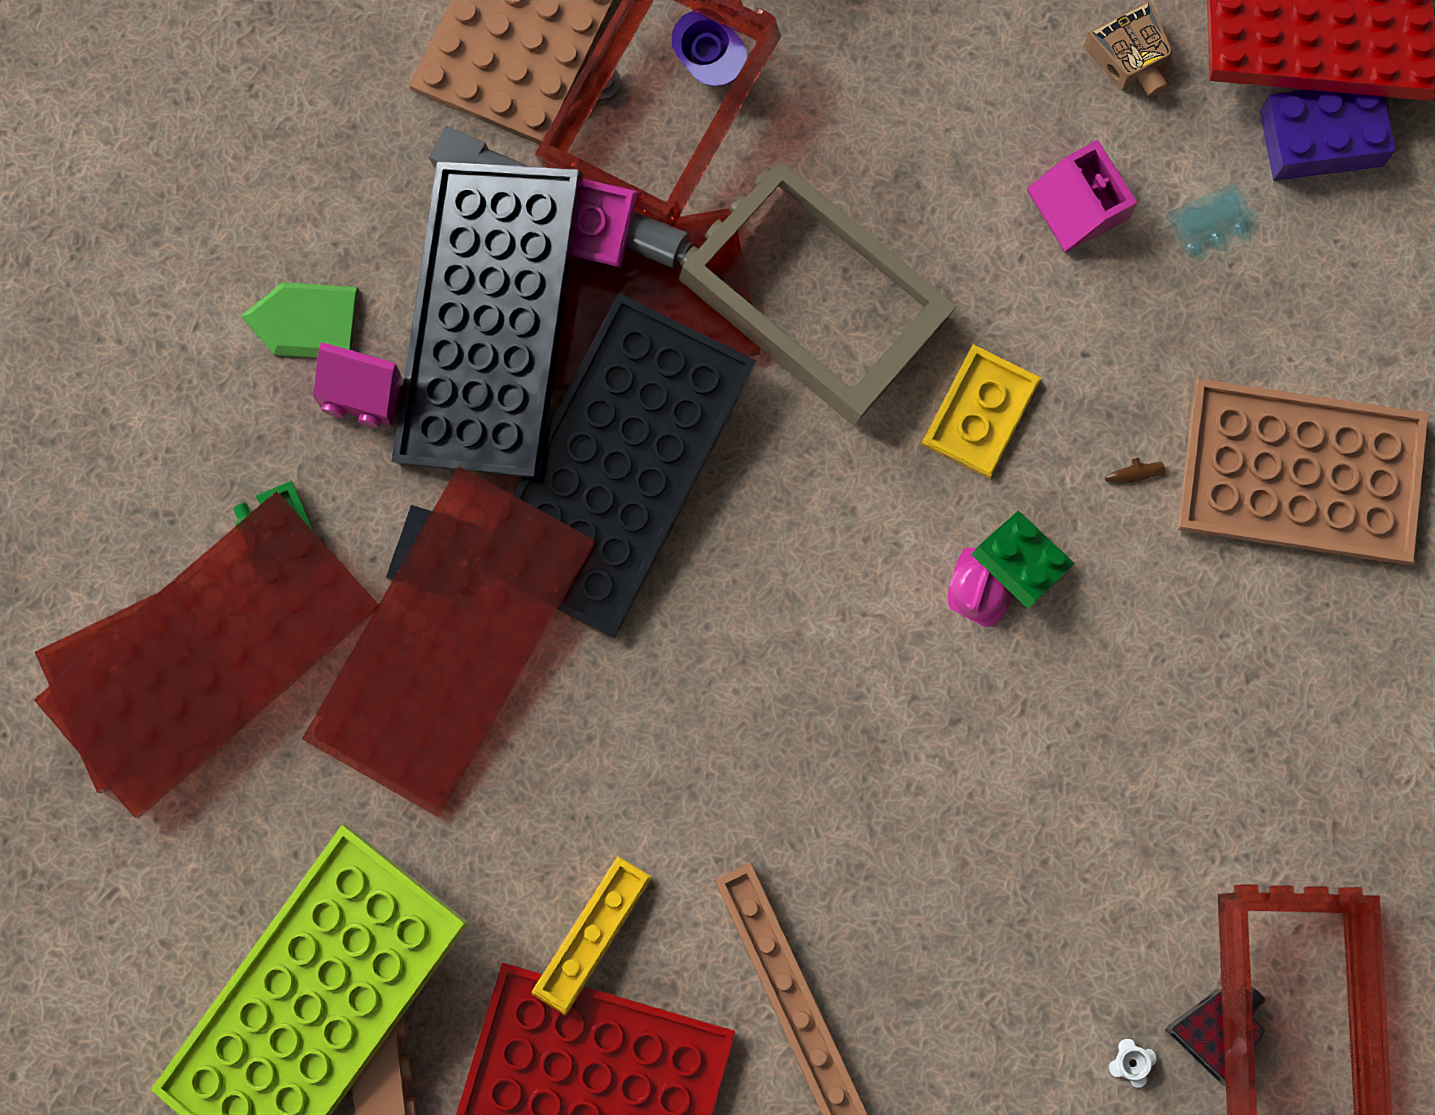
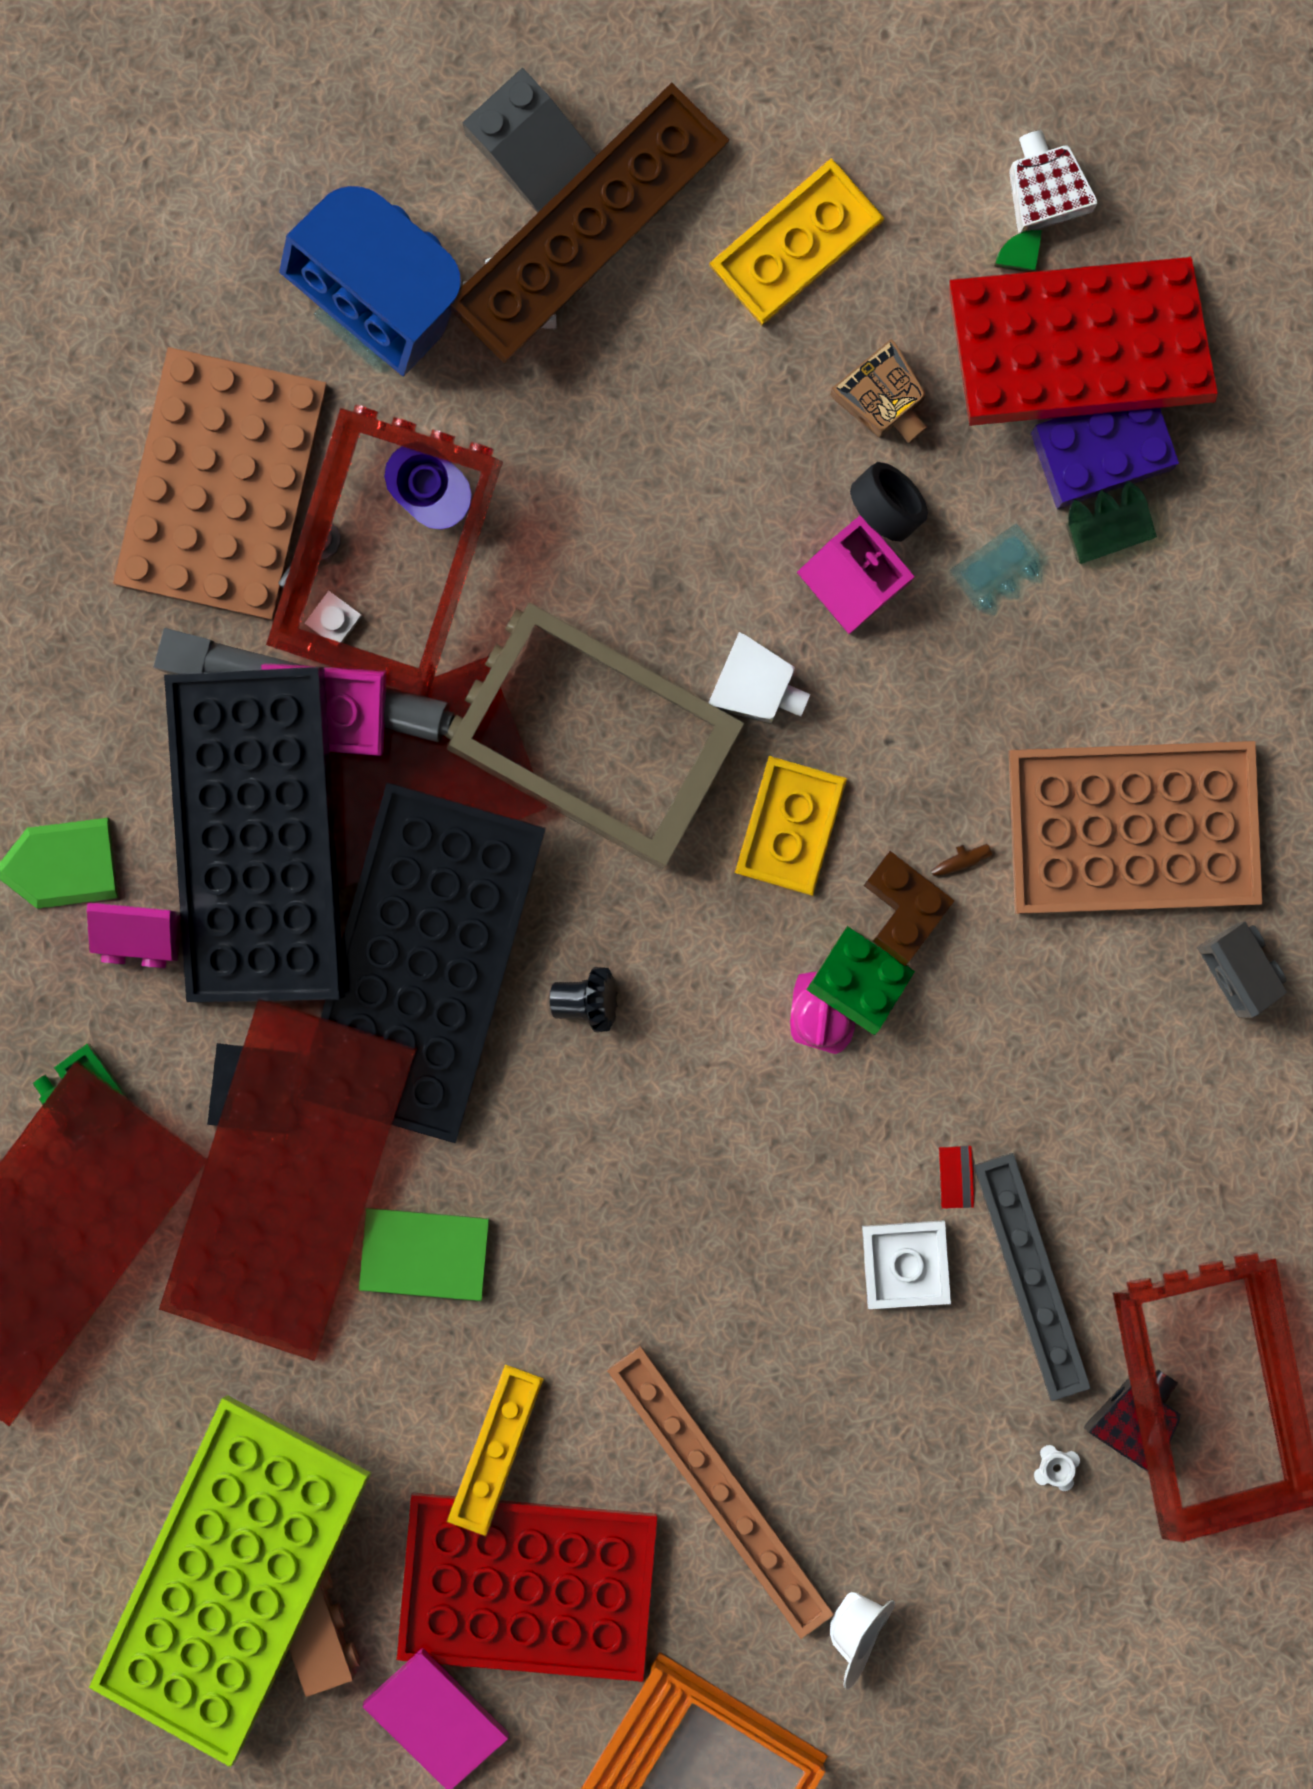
camera: 10 degrees left, 10 degrees up
(562, 737) = (424, 1254): none -> bright green tile
(600, 151) = (333, 618): none -> white plate
(765, 528) = (588, 999): none -> black gear
(974, 276) = (756, 683): none -> white torso
(1019, 835) = (906, 1264): none -> white plate
(1081, 764) = (956, 1177): none -> red sticker
(1085, 502) = (916, 905): none -> reddish brown plate
(1123, 138) = (889, 501): none -> black tyre
(1138, 871) = (1031, 1276): none -> dark grey plate
(1323, 199) = (1111, 526): none -> clear green plate
(1385, 617) = (1243, 969): none -> dark grey slope

